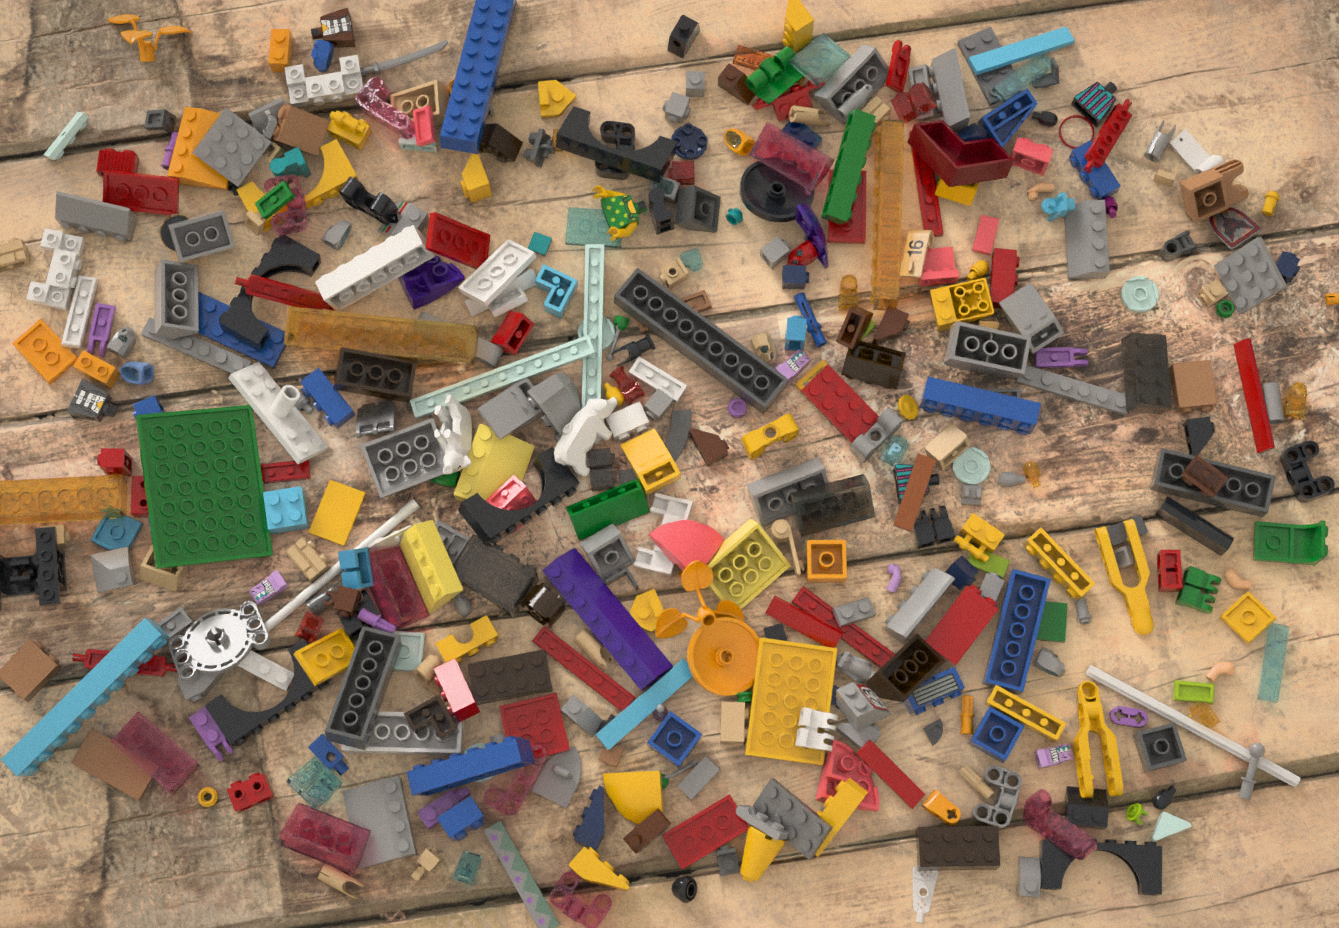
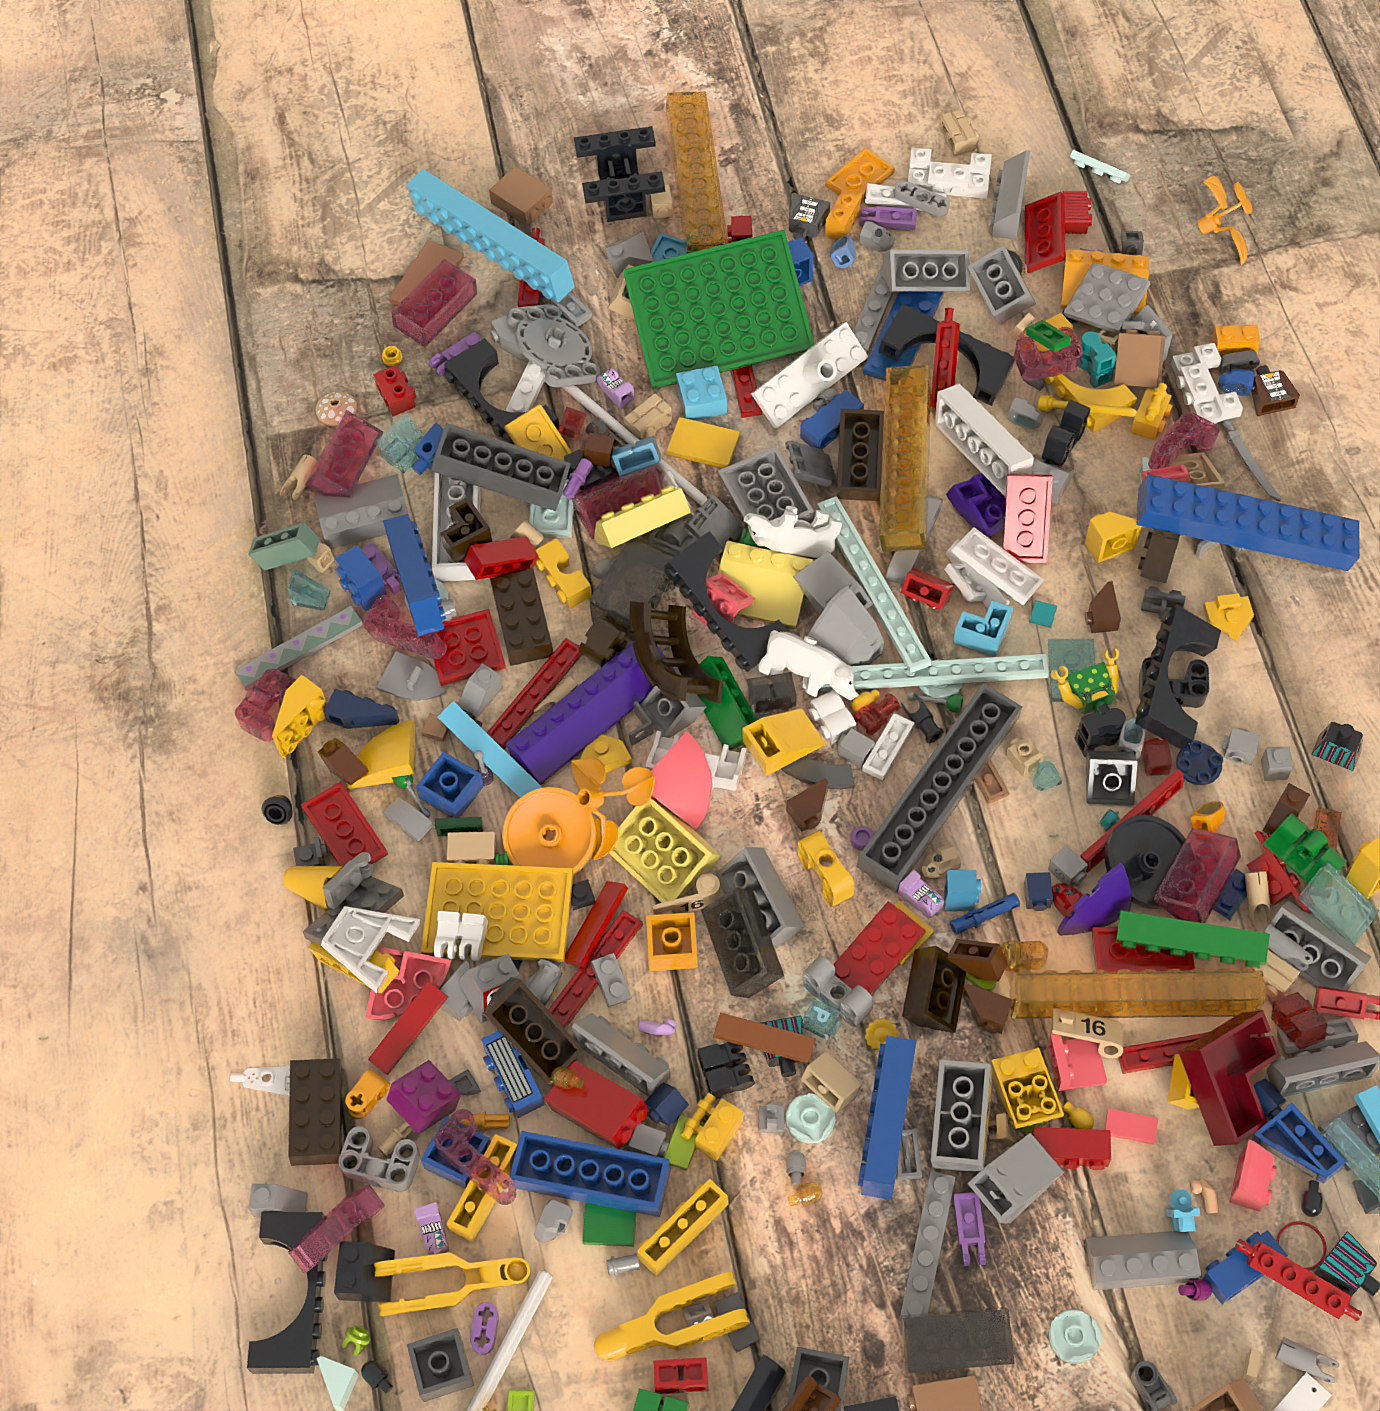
camera: 90 degrees right, 15 degrees down
(74, 305) = (936, 199): none -> light grey beam
(270, 851) = (331, 414): none -> tan dish
(301, 50) = (1239, 360): none -> dark grey beam
(329, 212) = (1047, 403): none -> yellow piece
(425, 888) = (284, 546): none -> sand green brick
(433, 505) = (717, 520): none -> flat silver plate
(542, 194) = (1104, 611): none -> reddish brown slope
(576, 561) = (656, 668): none -> dark brown fence
(710, 733) = (455, 825): none -> dark green tile
(736, 197) = (1147, 806): none -> red tile
(827, 808) = (357, 936): none -> white wing
(943, 646) = (566, 1078): none -> clear yellow cylinder
(951, 760) = (423, 1097): none -> magenta brick
(1014, 713) = (478, 1161): none -> clear pink beam

